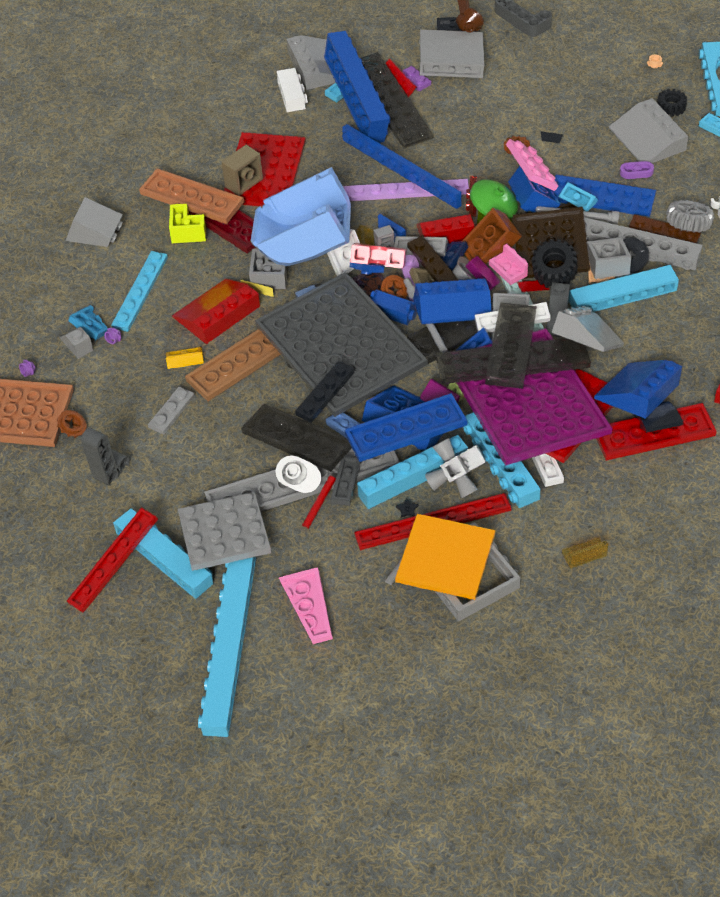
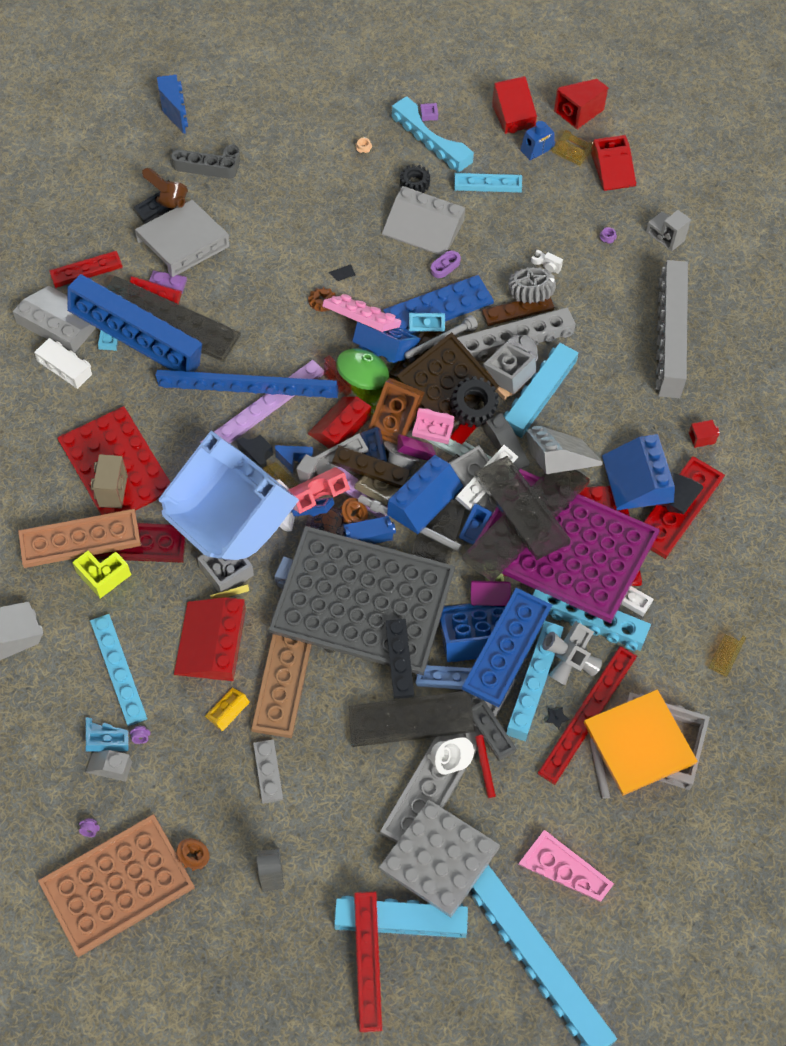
camera: 45 degrees left, 10 degrees up
(365, 212) = (256, 449): none -> black brick
(372, 42) = (88, 268): none -> red plate

